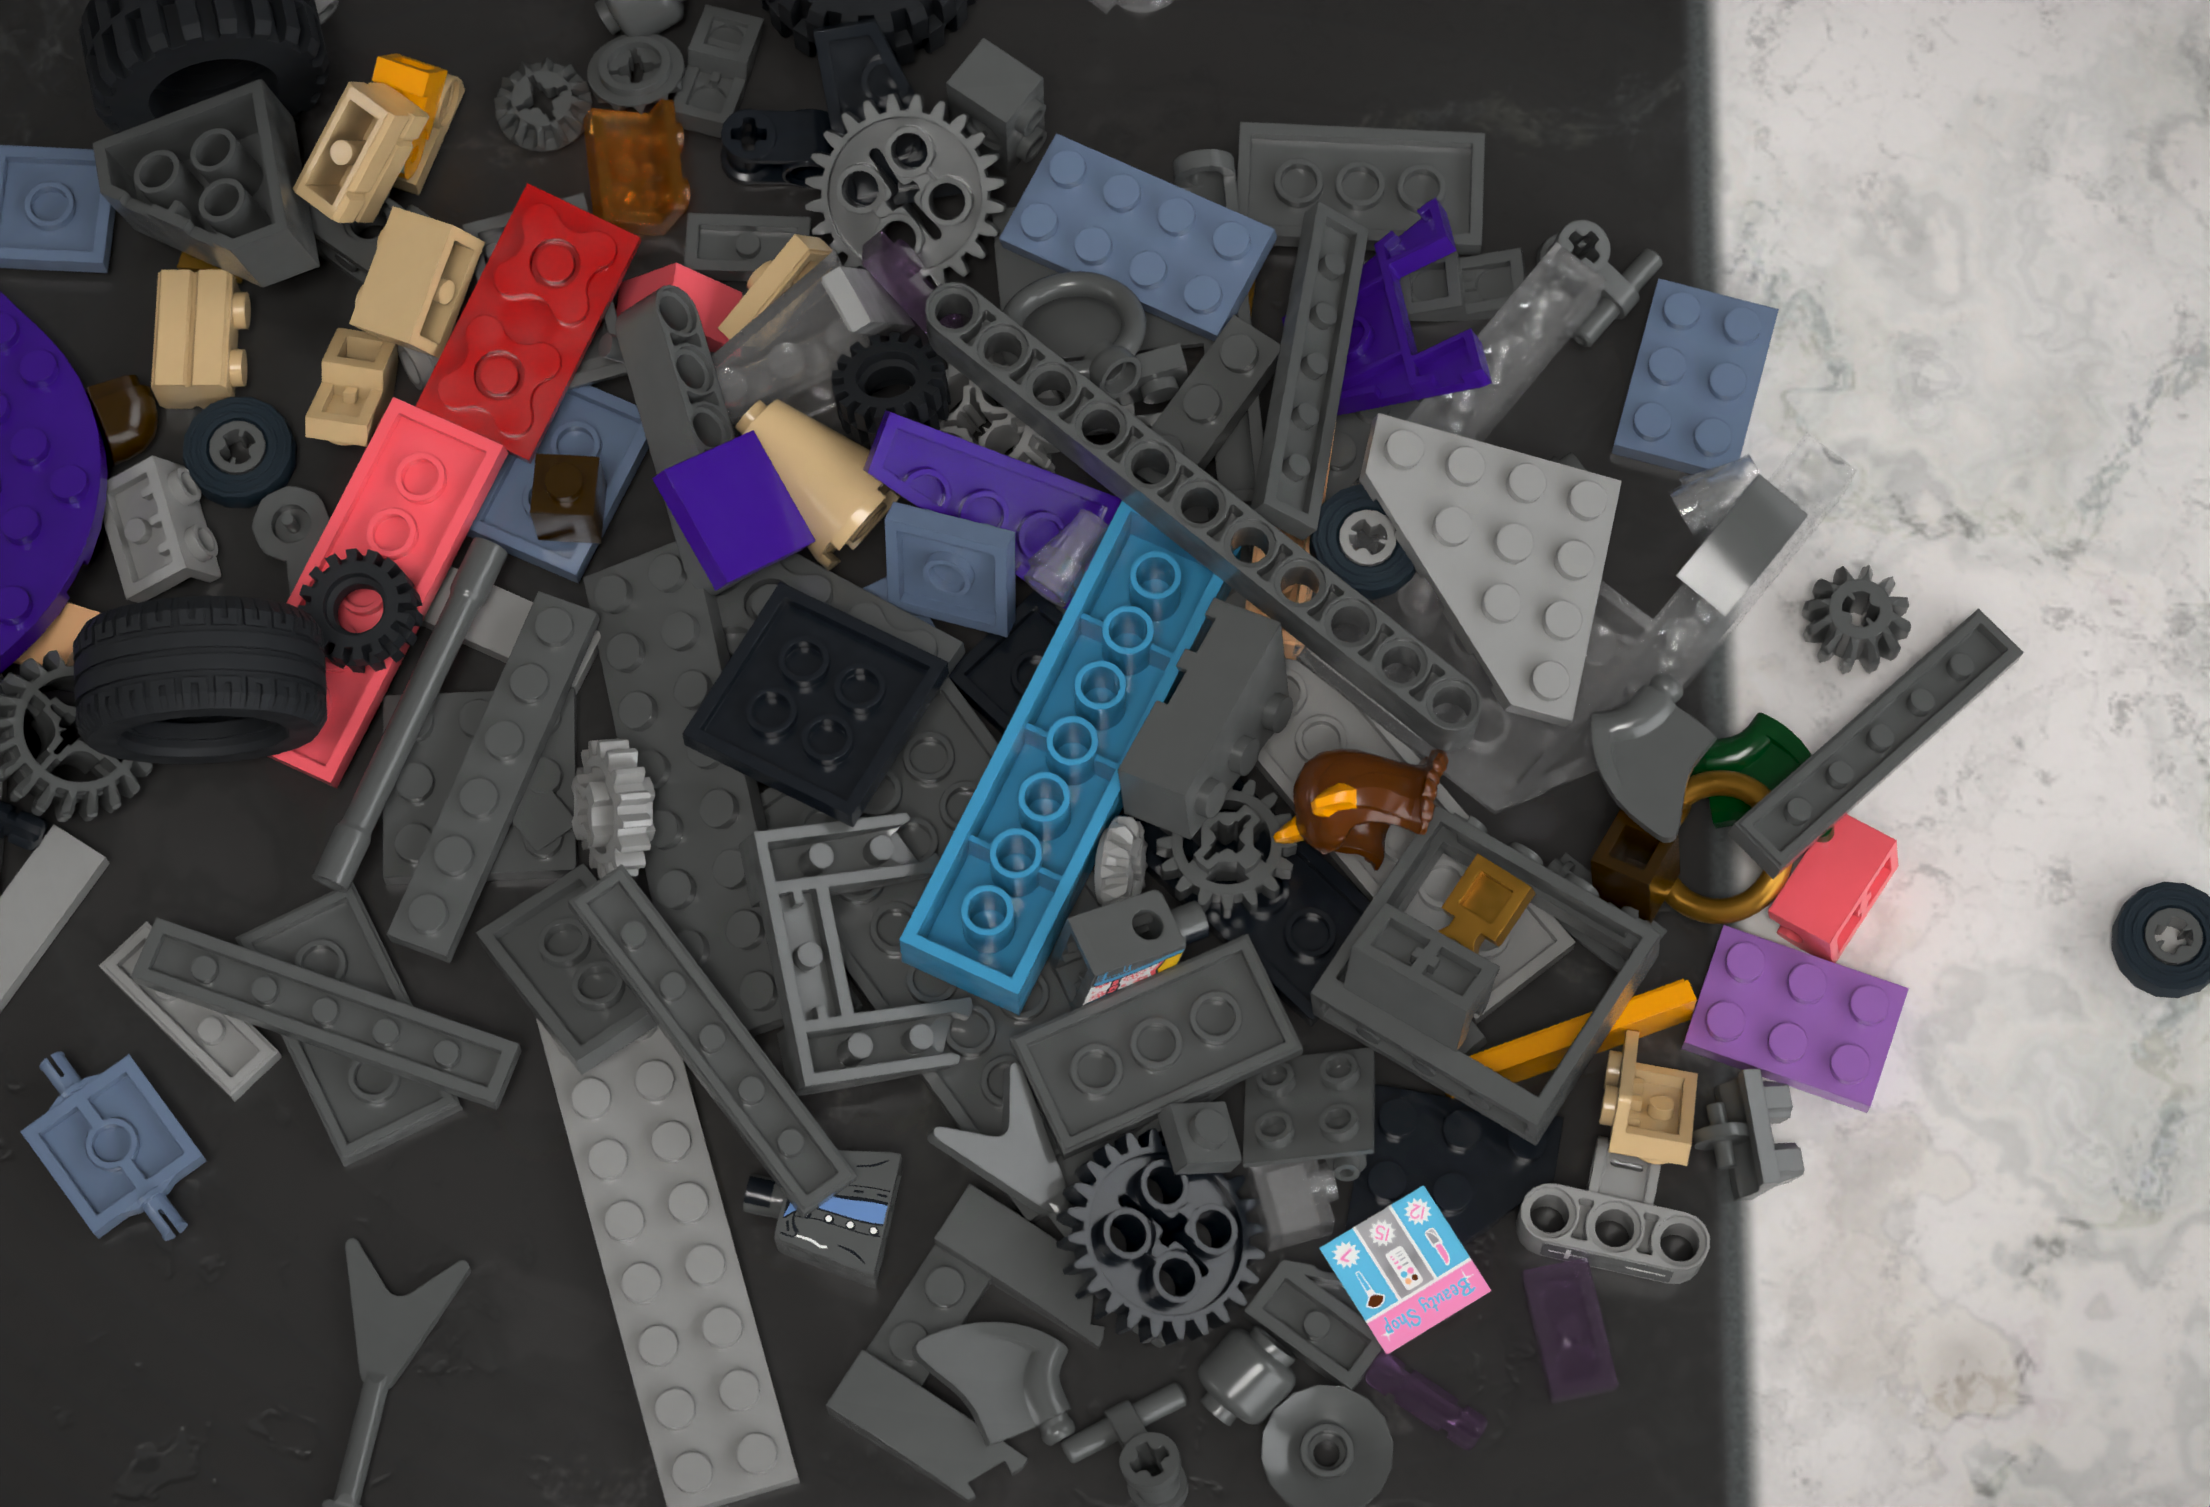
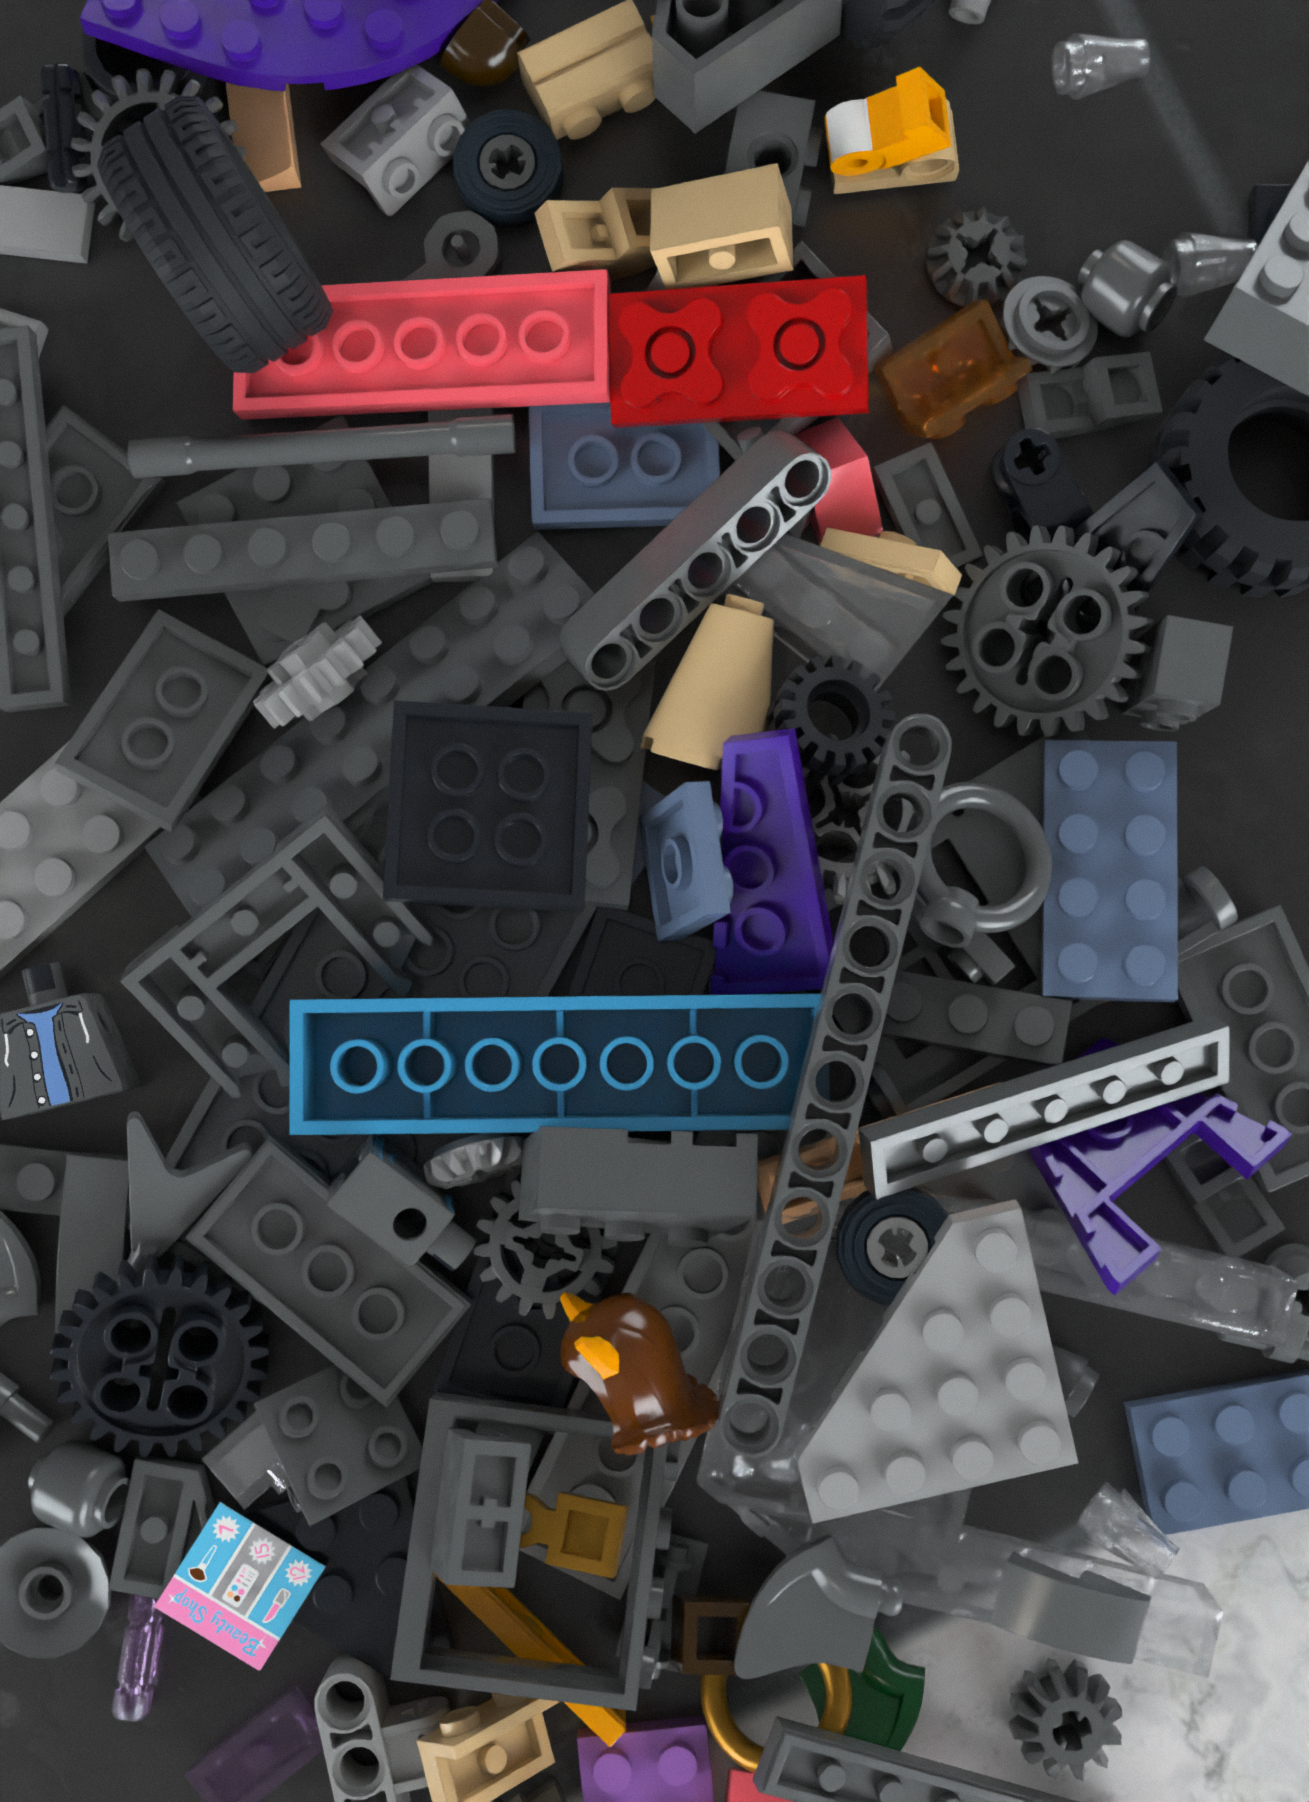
camera: 70 degrees right, 15 degrees up
(360, 152) = (817, 104): tan brick -> none
(396, 622) = (367, 320): black tyre -> none
(568, 498) = (587, 477): dark brown brick -> none
(712, 1041) = (131, 872): dark grey tile -> none
(734, 510) = (630, 635): dark purple tile -> none
(864, 302) = (904, 652): light grey tile -> none
(899, 273) = (956, 670): clear purple plate -> none
(1065, 559) = (746, 967): clear cone -> none
(1200, 1138) = (260, 1352): dark grey plate -> none

